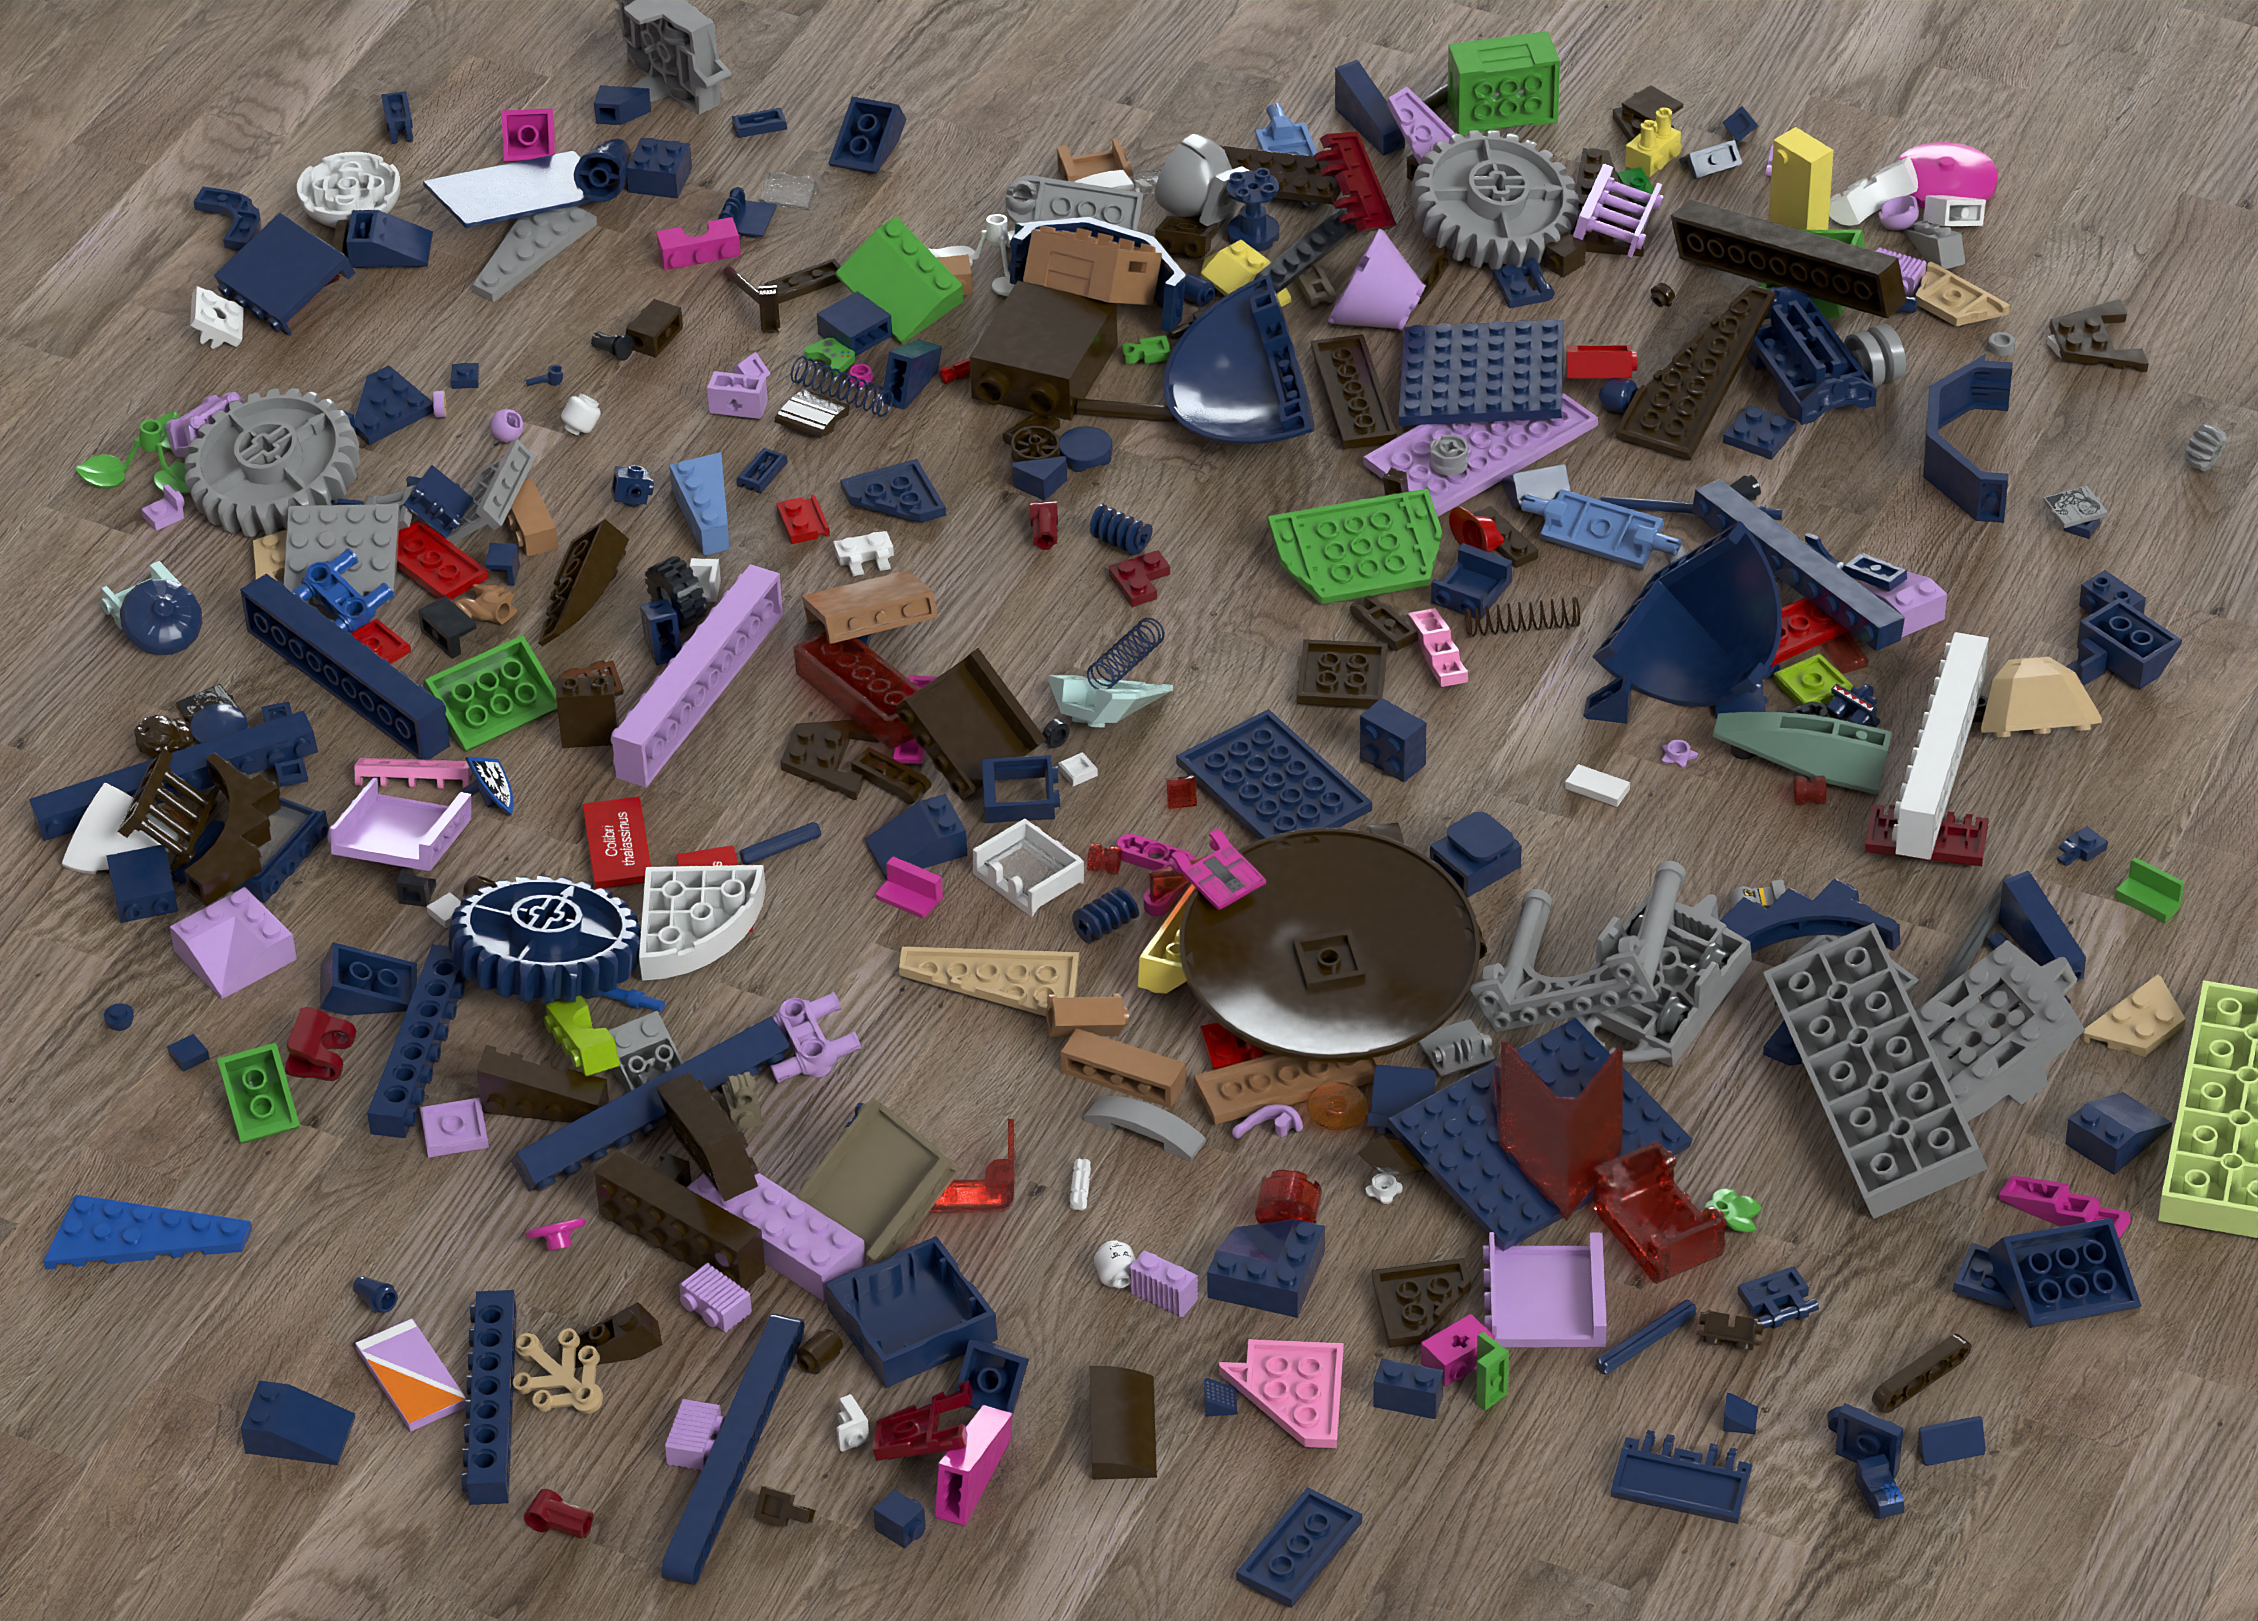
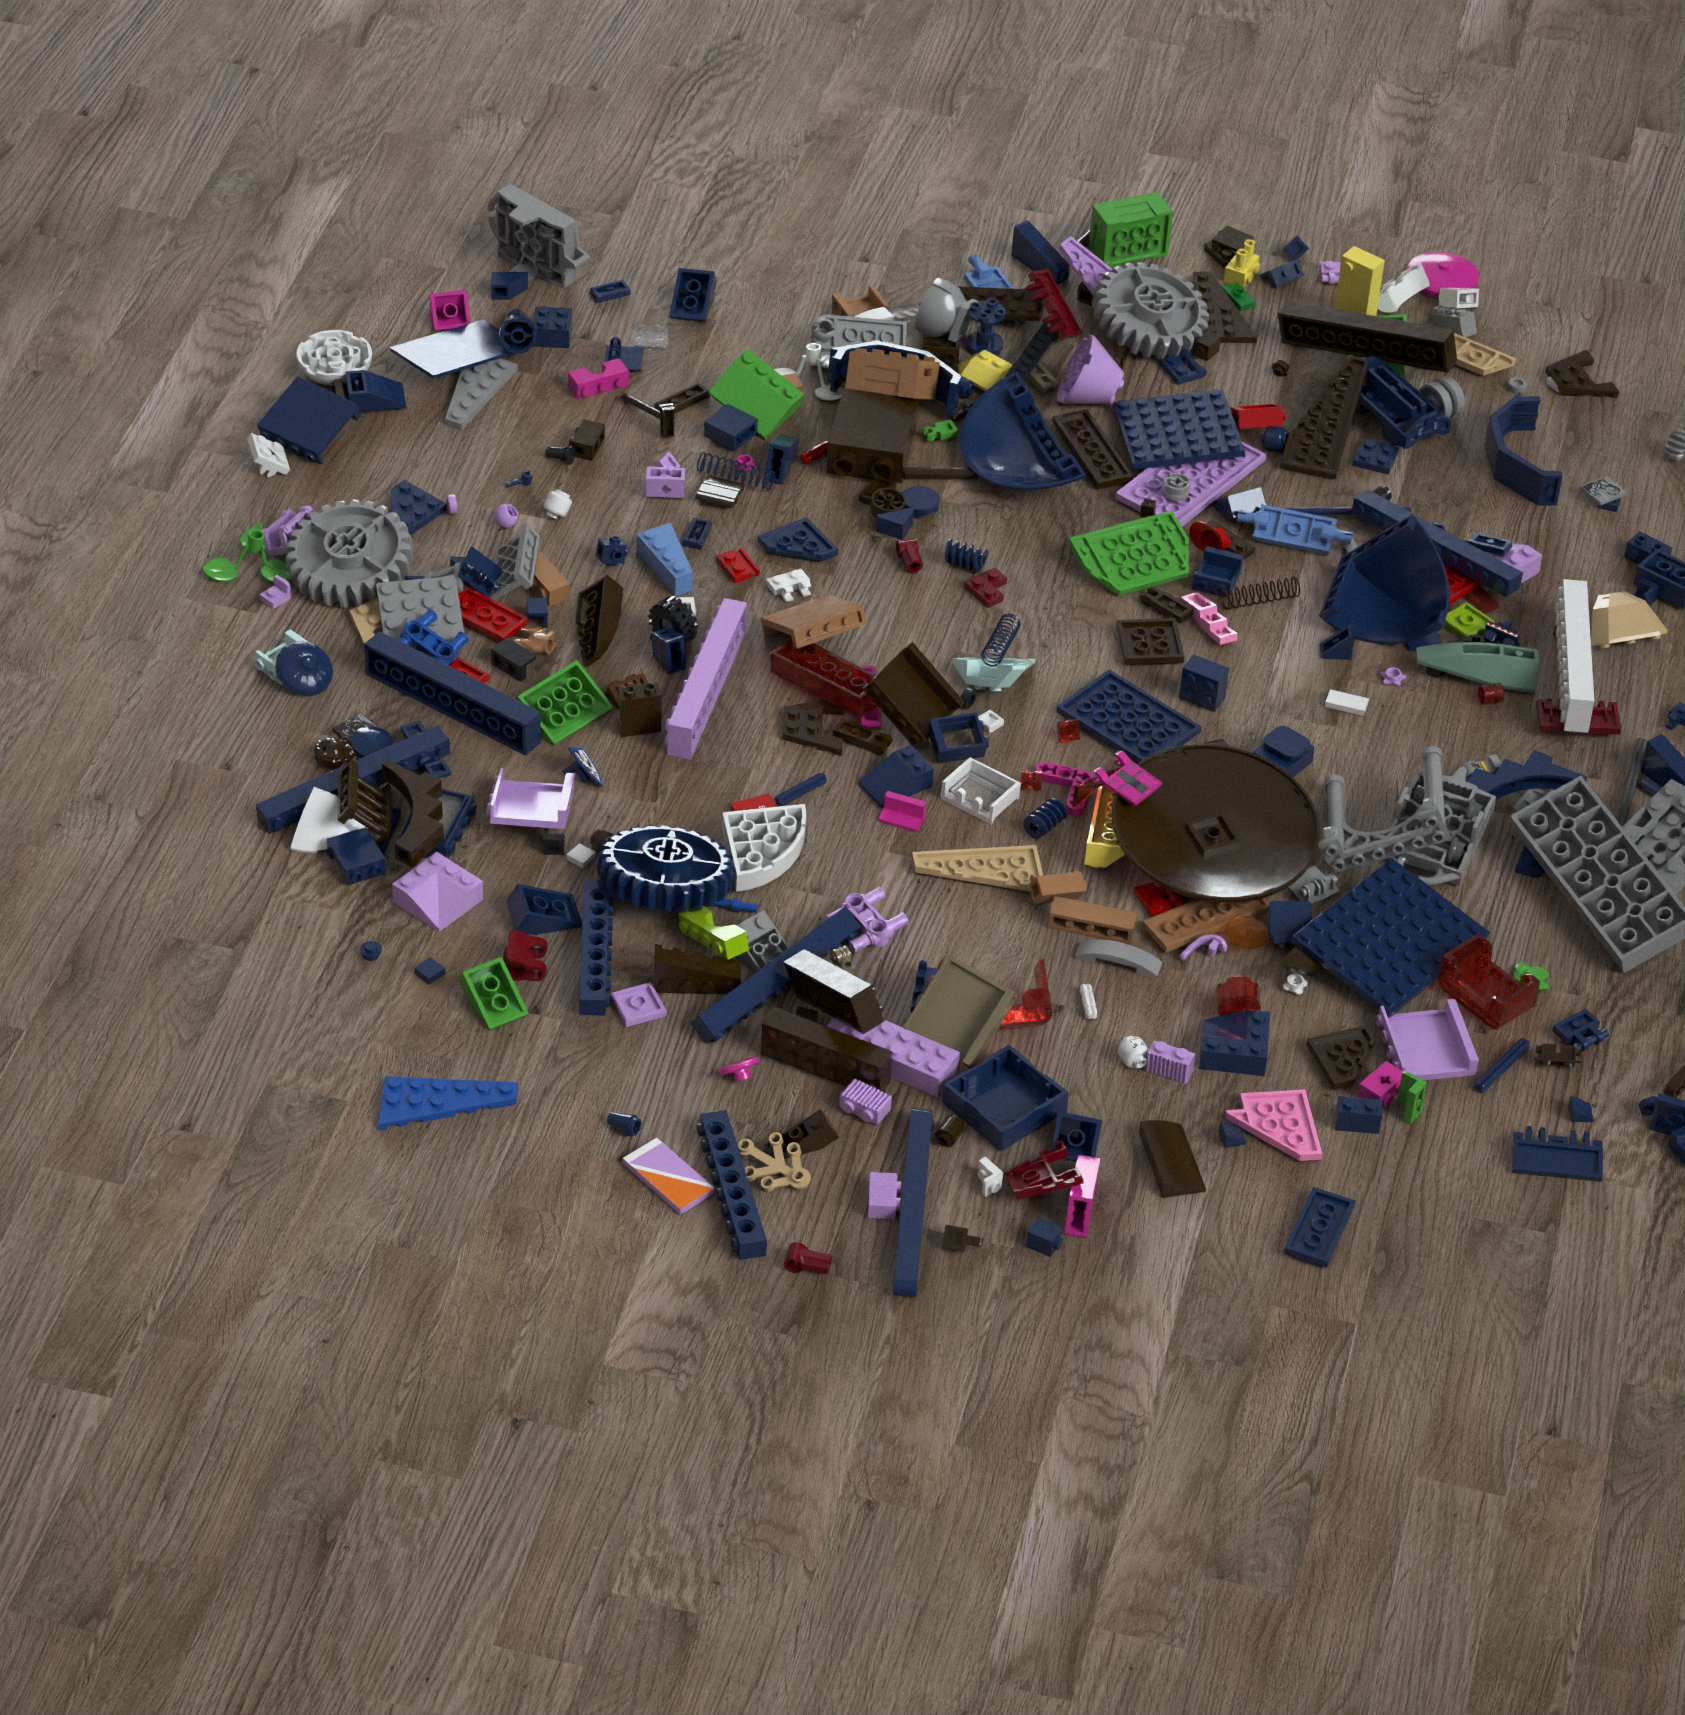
camera: 15 degrees left, 0 degrees up
(237, 207) = (253, 375): dark blue plate -> none
(295, 1425) = (600, 1218): dark blue slope -> none
(397, 115) = (347, 303): dark blue hinge -> none
(412, 769) = (523, 760): bright pink hinge -> none
(465, 375) = (461, 483): dark blue plate -> none
(617, 842) = (685, 798): red tile -> none
(831, 353) = (721, 448): bright green piece -> none
(1555, 1136) = (1407, 937): clear red windscreen -> none
(1600, 196) = (1219, 312): lavender fence -> none
(1899, 213) = (1422, 301): lavender hair -> none

